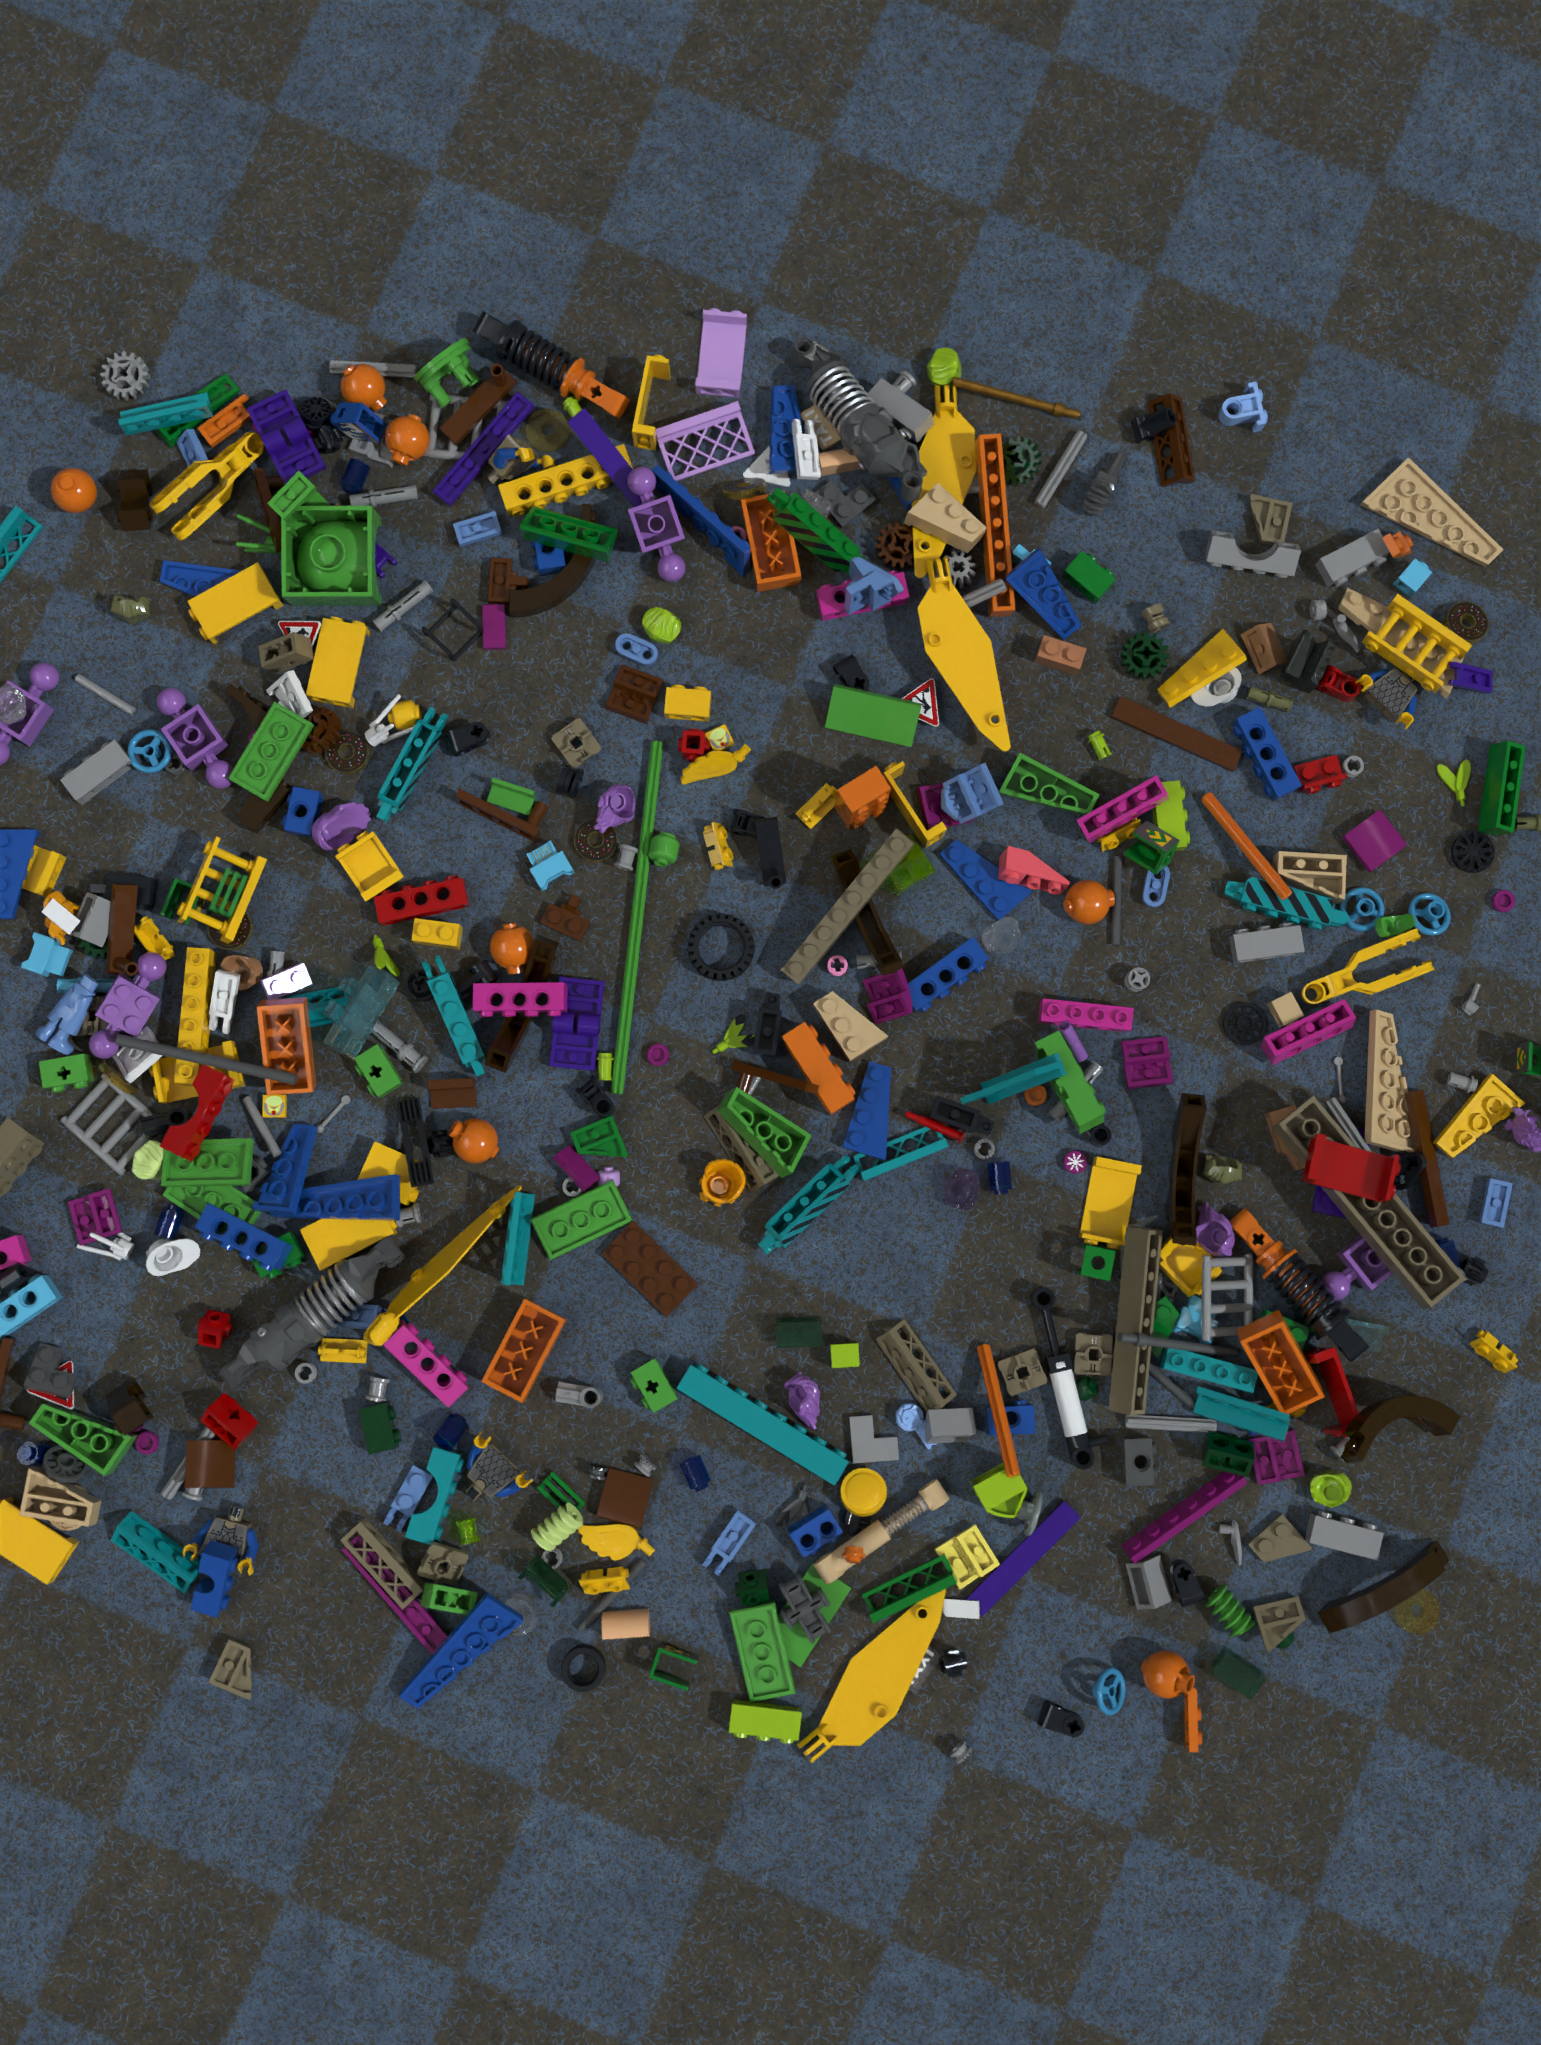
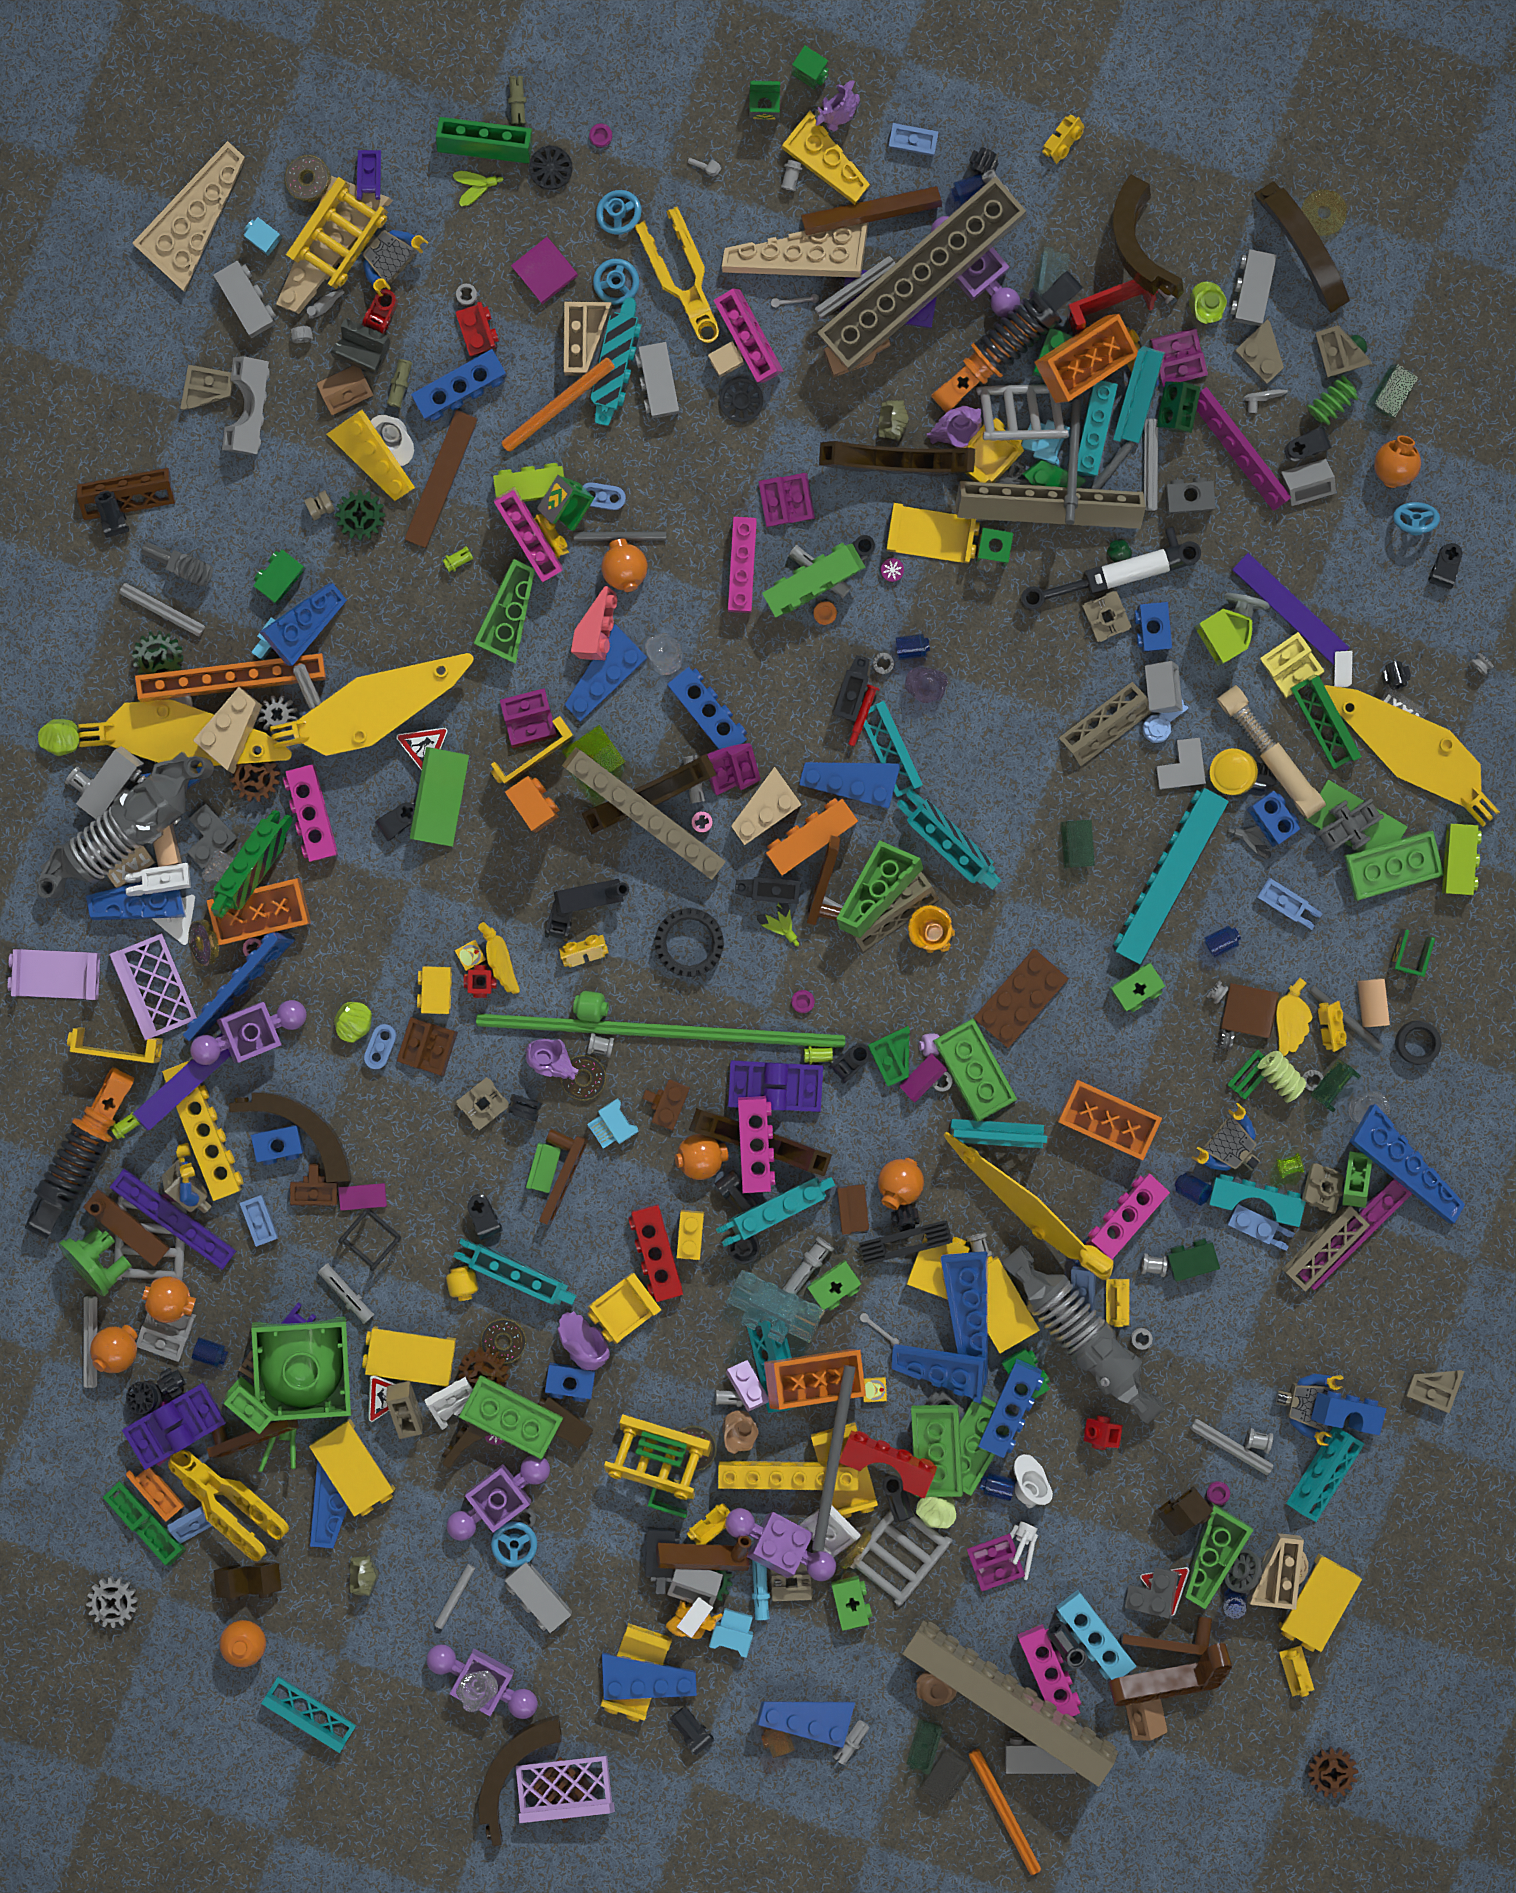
camera: 90 degrees left, 5 degrees up
(68, 1015) = (792, 1603): medium blue piece -> none
(165, 414) = (154, 1554): teal fence -> none
(209, 1464) = (1236, 1426): reddish brown slope -> none
(223, 999) = (768, 1447): white hinge -> none
(229, 1421) = (1193, 1410): red brick -> none
(262, 1127) = (896, 1400): light grey bar -> none
(358, 422) = (150, 1359): blue torso -> none
(376, 498) = (229, 1322): light grey pin -> none
(379, 733) = (482, 1308): white plant -> none
(381, 957) = (718, 1289): lime piece -> none
(543, 442) = (161, 1153): clear yellow tile -> none
(568, 533) = (262, 1122): green slope -> none
(576, 1394) = (1150, 1065): light grey piece -> none
(752, 1587) = (1331, 878): dark green brick -> none
(804, 1398) = (1144, 835): medium lavender hair -> none
(817, 806) = (535, 849): yellow hinge -> none
(844, 1355) = (1098, 796): lime panel -> none
(853, 1554) = (1295, 779): orange plate -> none
(869, 586) = (306, 805): medium blue piece -> none
(970, 794) = (520, 692): medium blue piece -> none
(998, 1411) = (1146, 640): orange axle -> none
(1019, 1080) = (814, 632): teal fence -> none
(1056, 409) = (97, 615): pearl gold bar -> none
(1060, 655) = (365, 603): nougat brick -> none
(1072, 1040) = (770, 577): medium lavender piece -> none
(1088, 1341) = (1073, 551): dark tan piece -> none
(1141, 977) = (699, 509): light grey wheel -> none
(1192, 1715) = (1435, 435): orange hinge -> none
(1246, 408) = (87, 415): light blue pin -> none
(1350, 1169) = (891, 294): red panel -> none
(1394, 925) = (632, 249): bright green hair -> none
(1398, 544) = (229, 252): orange slope -> none
(1413, 1173) = (887, 226): black beam -> none

